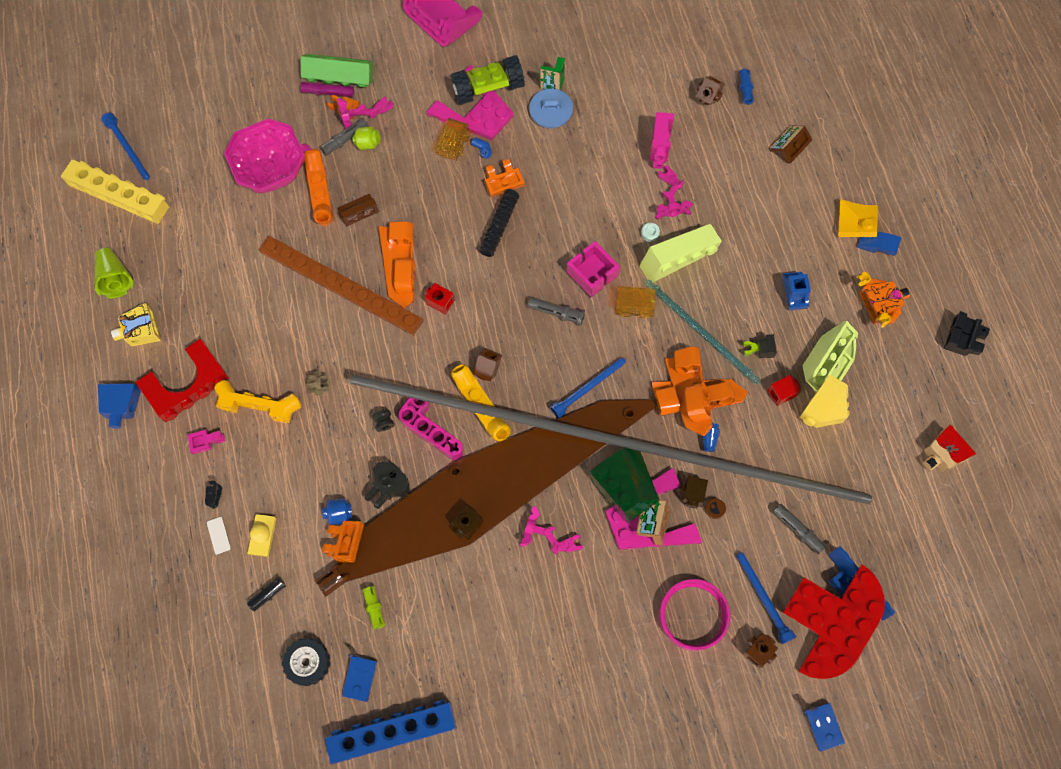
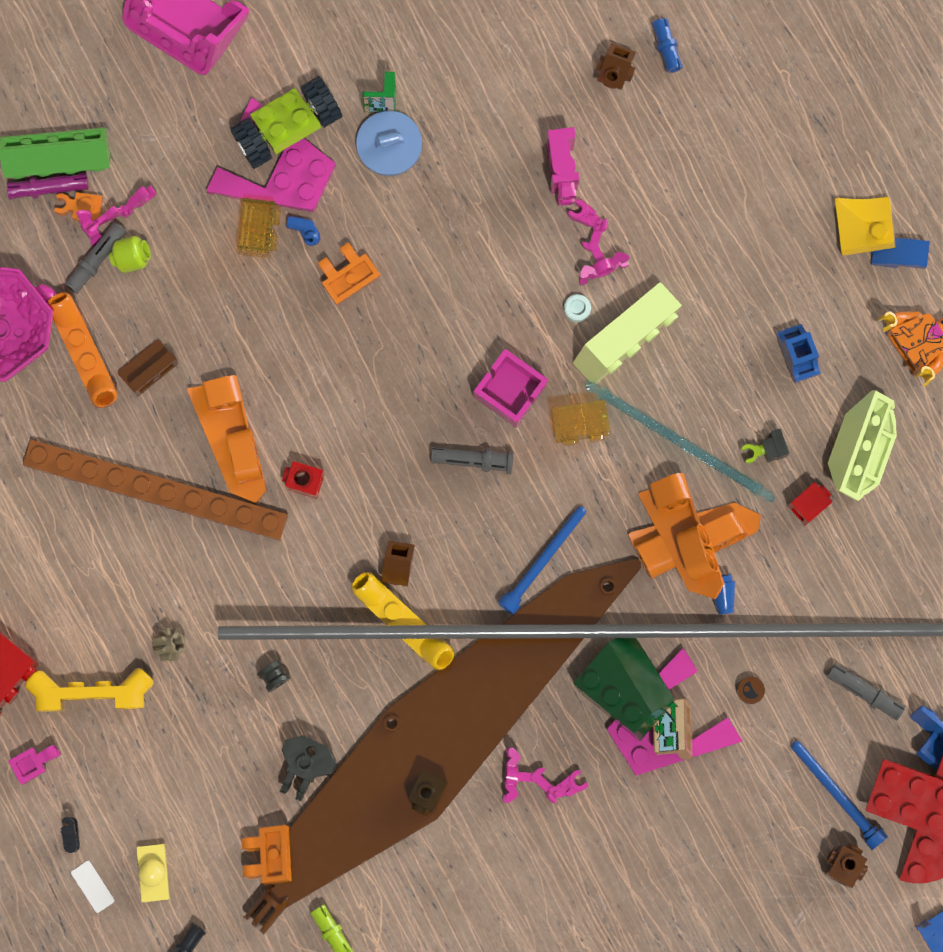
camera: 20 degrees left, 10 degrees up
(337, 511) = (247, 817): blue head -> none
(433, 430) = (346, 673): dark pink beam -> none
(499, 223) = (359, 344): black piece -> none
(694, 492) = (717, 676): dark brown brick -> none
(720, 599) = (794, 839): dark pink piece -> none
(791, 142) = (749, 123): reddish brown panel -> none
(828, 404) = (868, 519): light yellow wedge -> none

